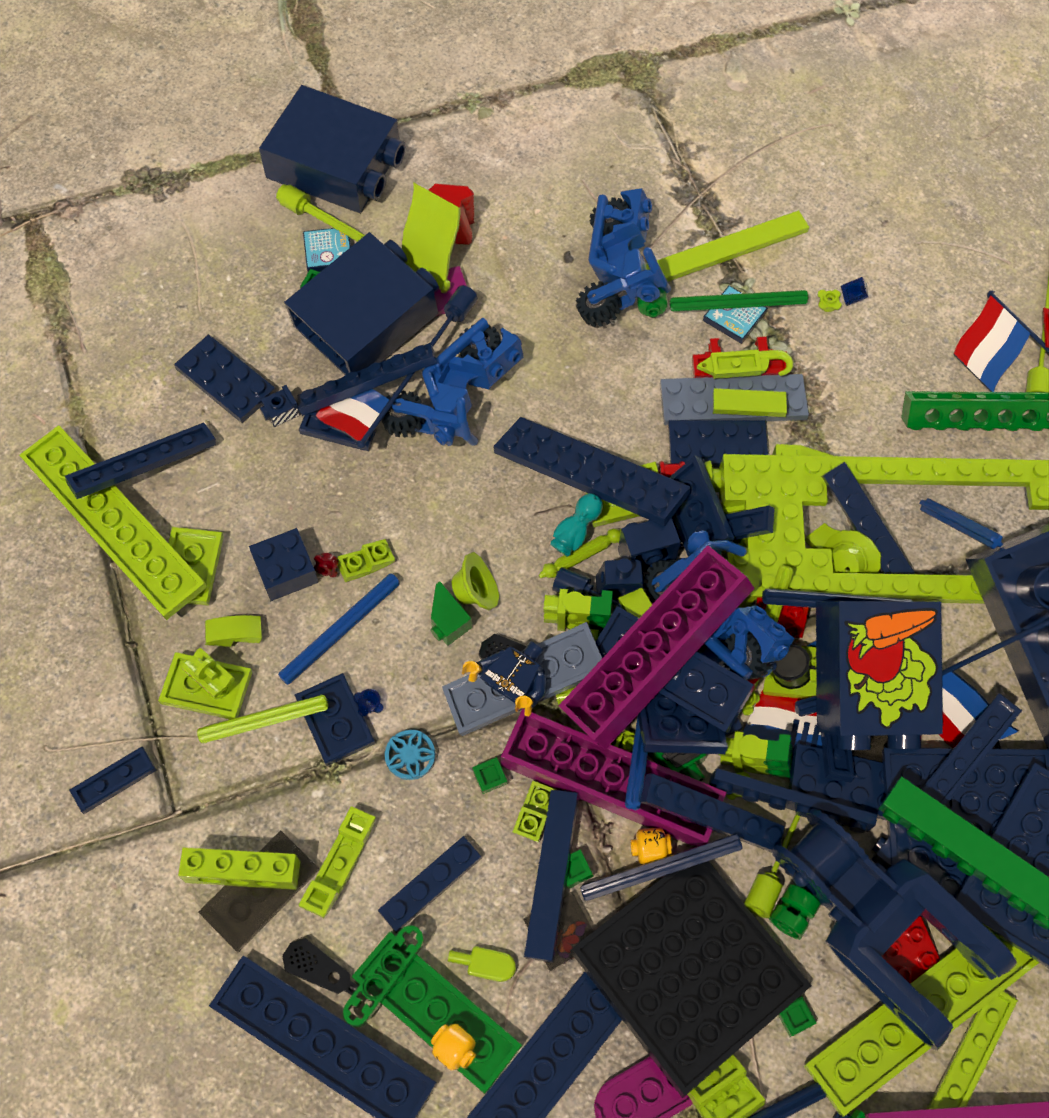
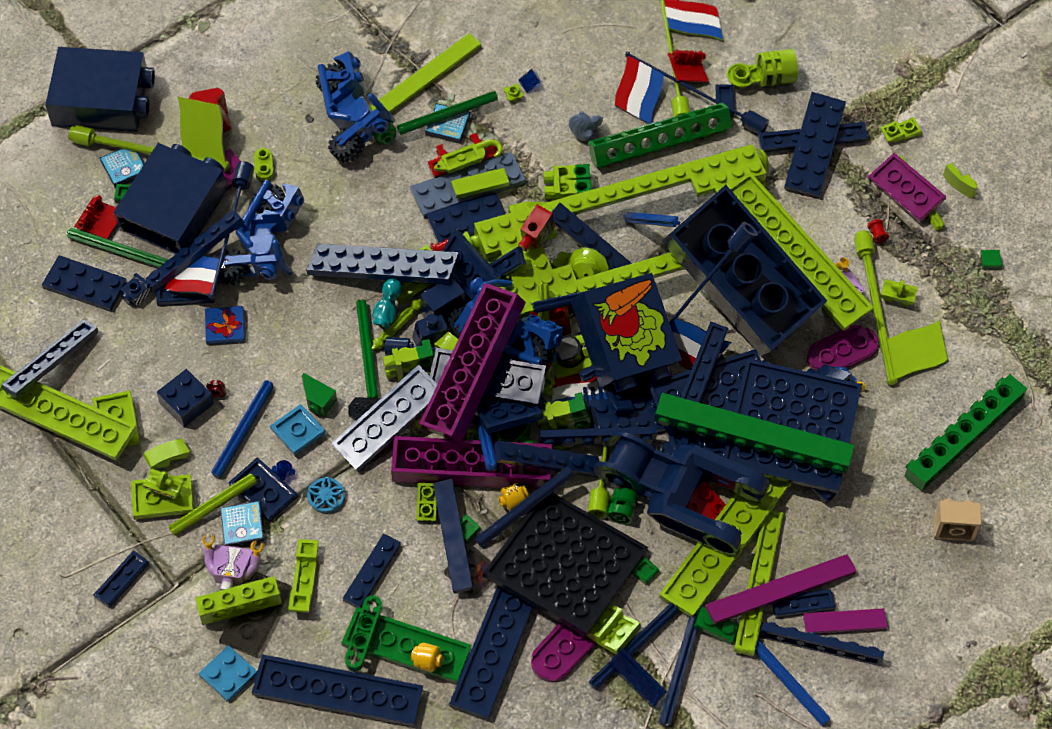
camera: 20 degrees left, 5 degrees down
(192, 964) = (228, 673): none -> dark azure plate
(252, 810) = (231, 564): none -> lavender torso
(268, 303) = (97, 218): none -> red hinge
(278, 346) = (115, 247): none -> green axle
(289, 758) = (242, 523): none -> medium azure tile
(321, 970) = (319, 646): black piece -> none
(366, 561) = (244, 376): lime slope -> none
(369, 484) = (224, 325): none -> blue tile
(406, 653) = (297, 429): none -> dark azure plate
(475, 583) = (328, 367): lime hat -> none
(486, 963) = (428, 607): lime piece -> none
(489, 775) = (387, 489): green plate -> none
(493, 296) = (263, 163): none -> lime plate
(512, 675) = (380, 415): dark blue torso -> none
(532, 575) = (366, 349): none -> green axle
(802, 488) = (536, 228): none -> red torso
(862, 434) = (567, 180): none -> lime hips
(905, 369) = (583, 126): none -> sand blue hair

